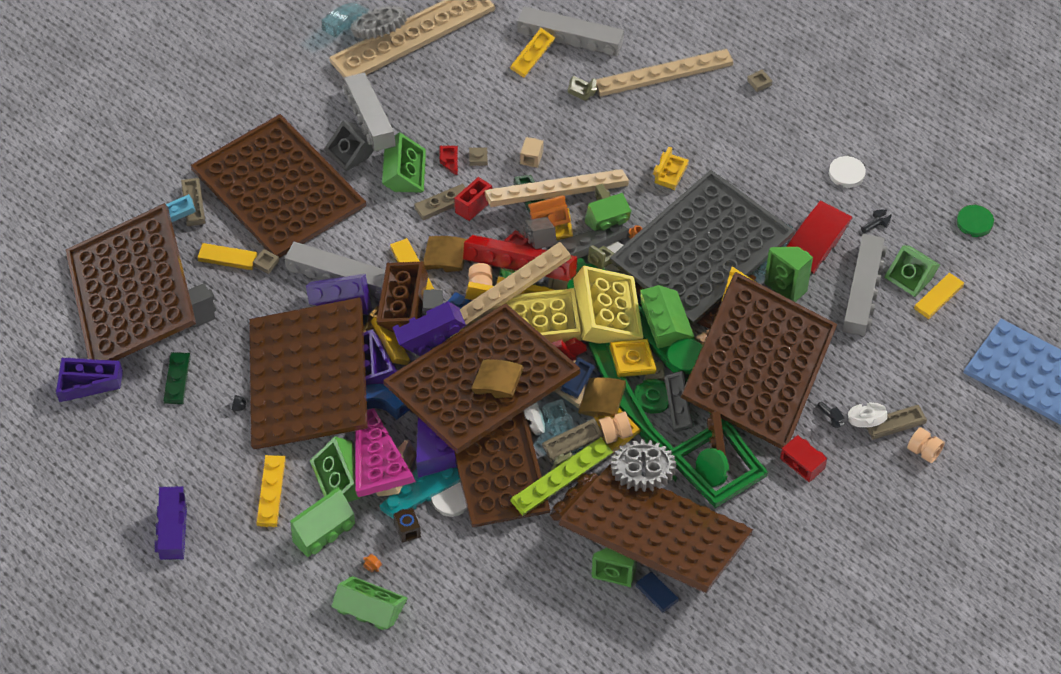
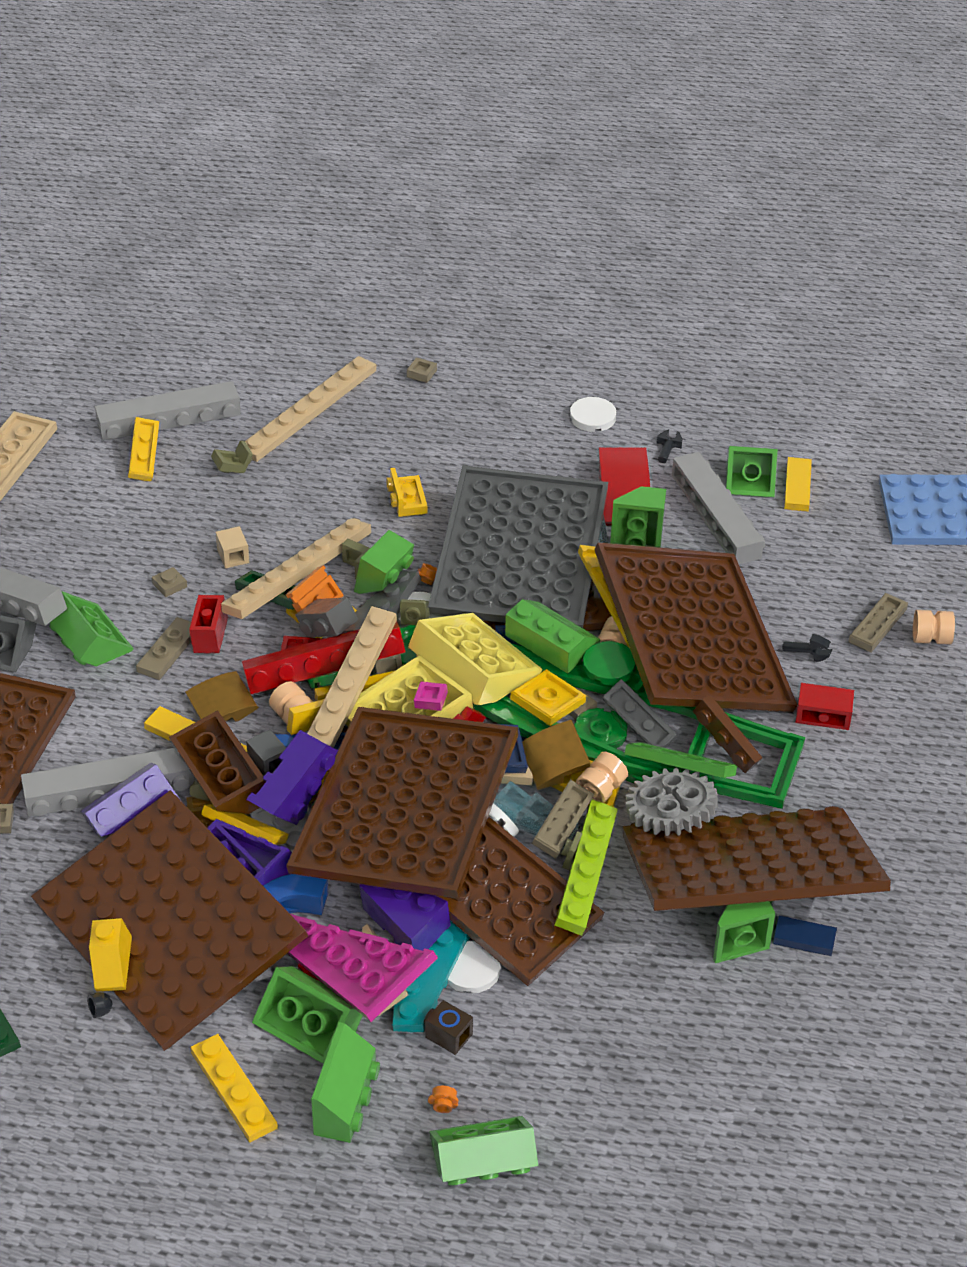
camera: 35 degrees left, 10 degrees down
(171, 523) = (136, 1204): dark purple wedge -> none
(257, 378) = (109, 954): none -> yellow slope
(449, 158) = (135, 599): red tile -> none
(497, 378) = (433, 785): pearl gold slope -> none
(552, 319) = (430, 696): none -> dark pink plate
(572, 495) = (618, 883): reddish brown plate -> none
(673, 443) = (681, 759): none -> bright green tile
(712, 466) = (751, 760): green tile -> none
(867, 416) = (848, 628): white tile -> none
(975, 220) = (763, 400): green tile -> none

